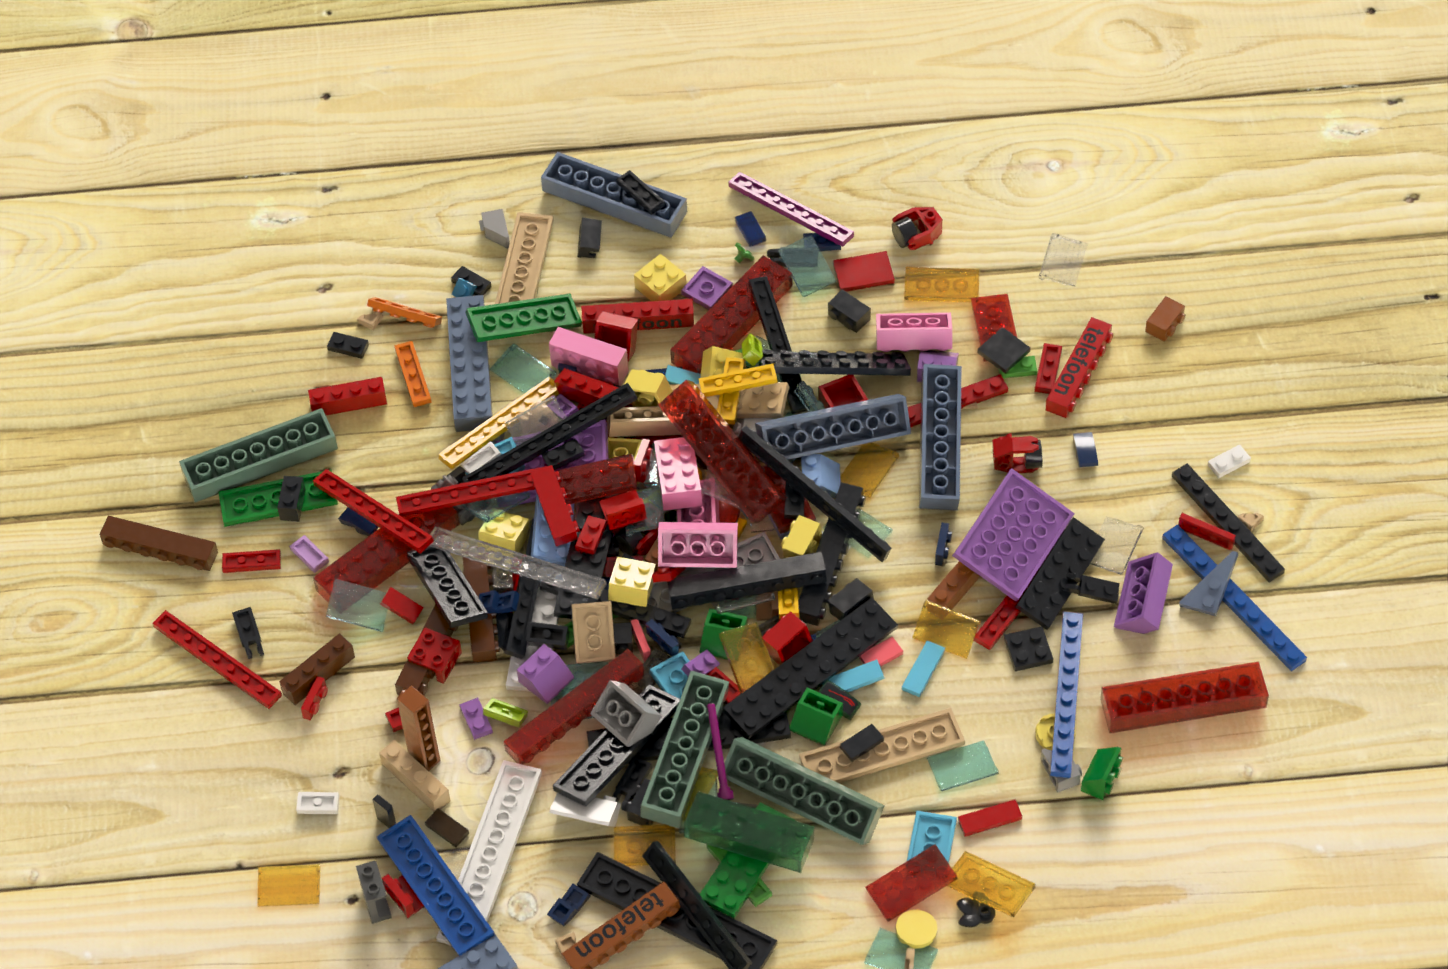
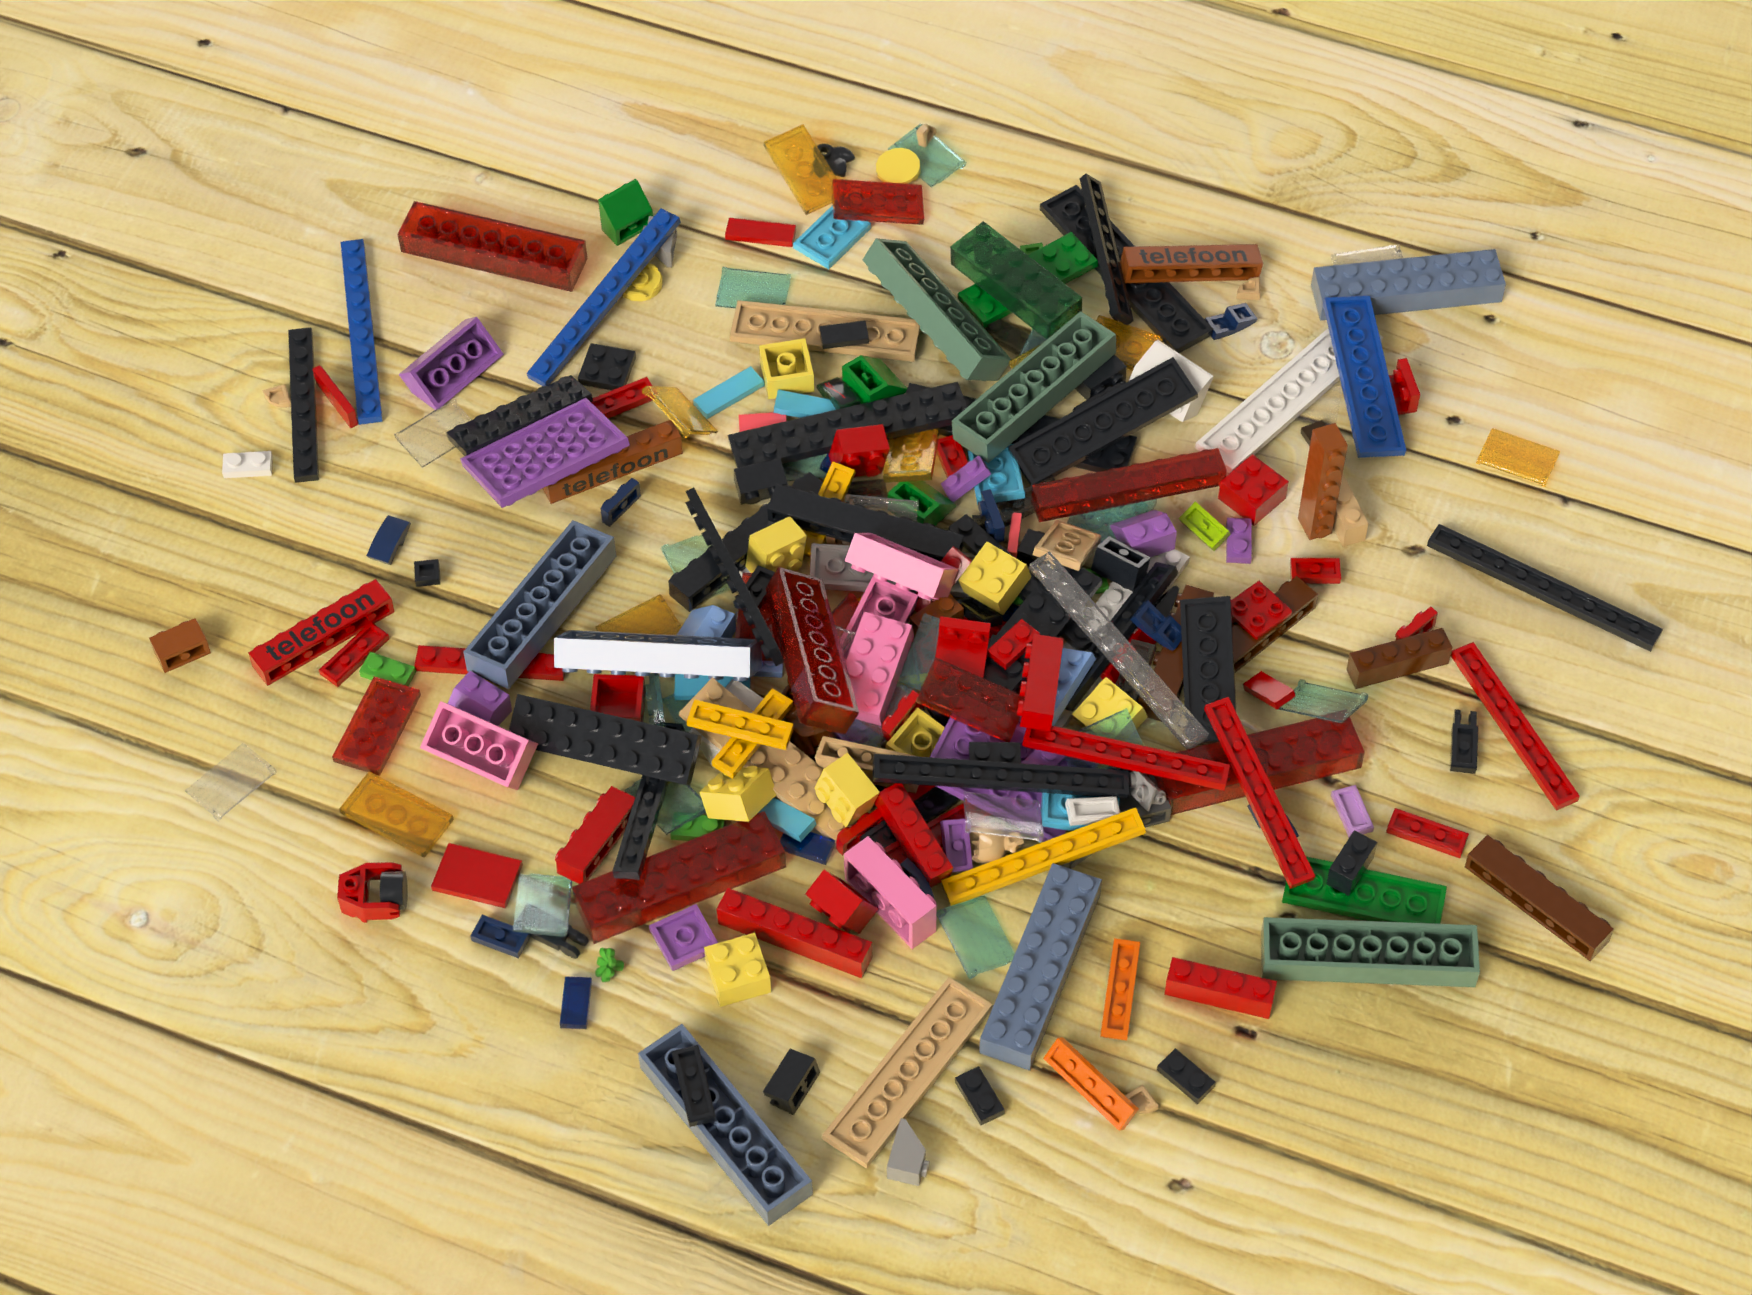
camera: 155 degrees left, 0 degrees up
(230, 776) = (1545, 587): none -> black plate
(317, 803) = (1455, 519): white plate -> none
(373, 892) = (1433, 389): dark grey panel -> none
(384, 811) = (1387, 466): black tile -> none
(463, 288) = (997, 1079): dark azure plate -> none
(480, 755) = (1253, 489): none -> red brick
(523, 317) = (943, 981): green plate -> none
(625, 713) = (1078, 438): light grey slope -> none
(724, 791) = (1014, 342): magenta piece -> none
(752, 349) = (692, 783): lime piece -> none
(791, 209) = (511, 993): plate -> none
(801, 315) = (595, 836): none -> red brick
(849, 311) = (533, 822): black brick -> none
(888, 695) = (786, 367): none -> light yellow brick
(1003, 350) = (391, 681): black tile -> none
(1006, 446) = (470, 550): red piece -> none
(1042, 434) = (427, 572): none -> black plate
(1093, 588) = (498, 387): black hinge -> none
(1210, 591) = (383, 333): sand blue wing -> none

